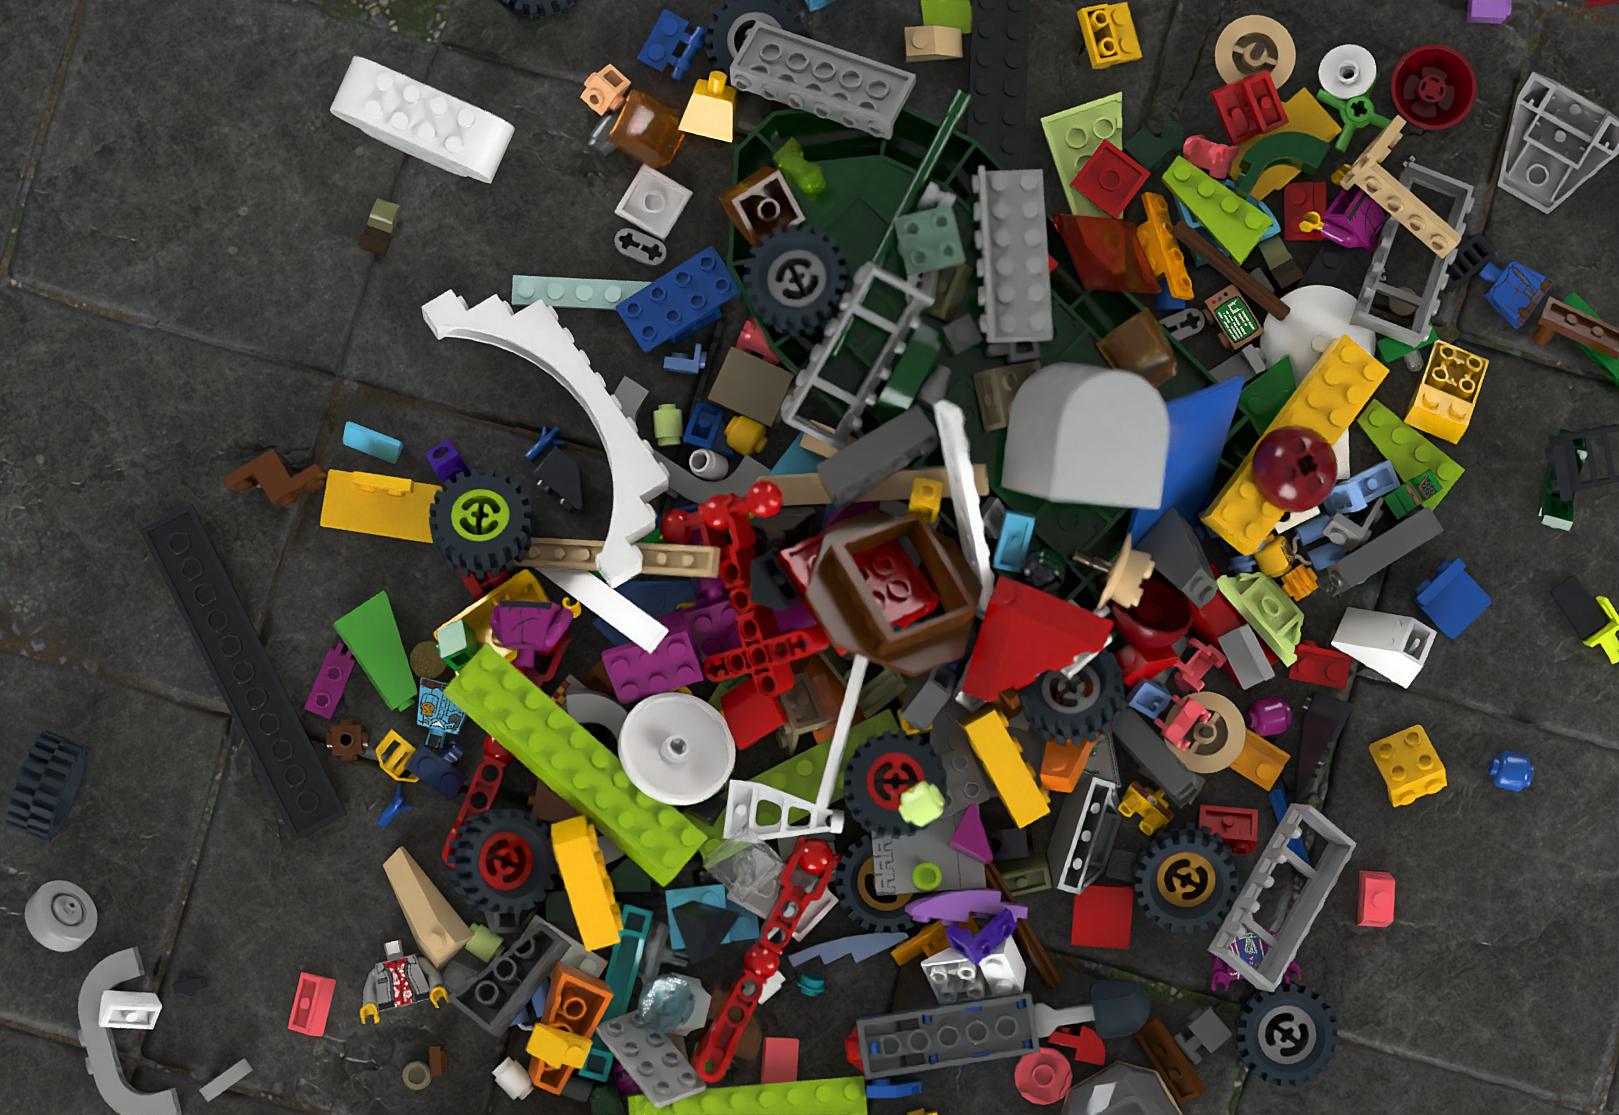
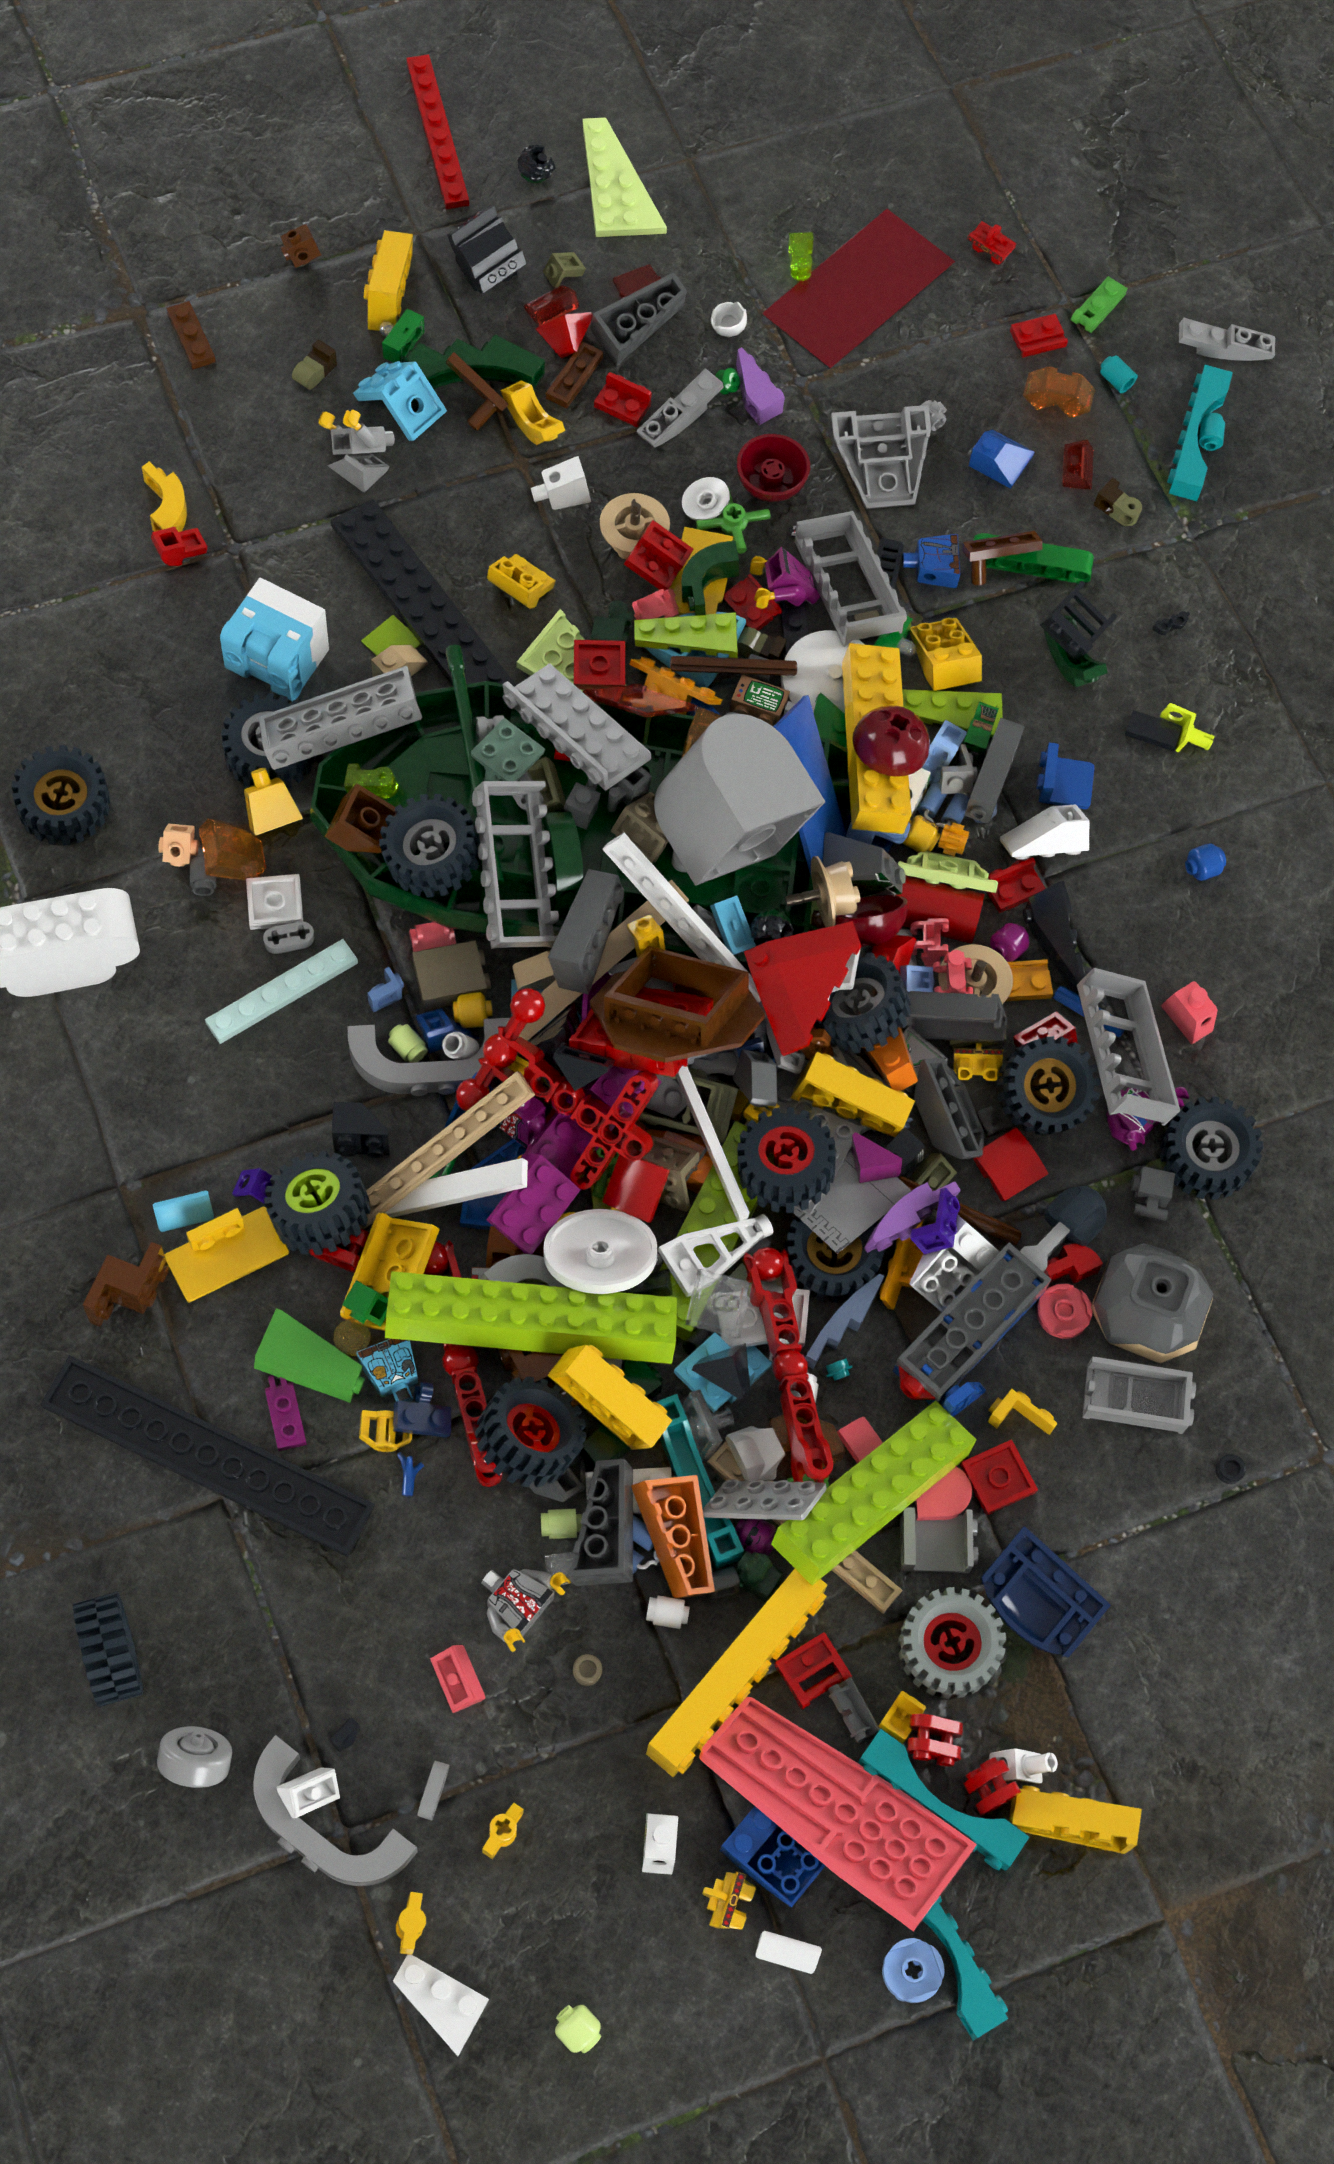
camera: 40 degrees left, 20 degrees down
(358, 743) = (332, 1453): reddish brown brick -> none
(380, 227) = (73, 1054): leg -> none
(431, 918) = (503, 1534): tan wedge -> none
(438, 1060) = (595, 1642): reddish brown tile -> none
(530, 625) = (414, 1241): magenta torso -> none
(540, 339) = (264, 1044): white arch -> none
(545, 442) = (321, 1122): blue bar -> none
(558, 1046) = (685, 1545): yellow slope -> none
(664, 41) = (197, 788): blue plate -> none
(665, 1003) = (741, 1452): clear light blue tile -> none
(679, 301) = (349, 949): blue bracket -> none
(921, 803) = (820, 1145): yellowish green head -> none
(926, 876) = (863, 1213): lime tile -> none
(934, 387) = (591, 854): light grey cone -> none
(1169, 1061) = (1145, 1229): reddish brown plate -> none
(1242, 564) = (903, 852): medium blue plate -> none
(1246, 656) = (962, 903): light grey panel -> none
(1394, 196) = (809, 541): tan bracket -> none
(1408, 765) = (1134, 906): yellow bracket -> none

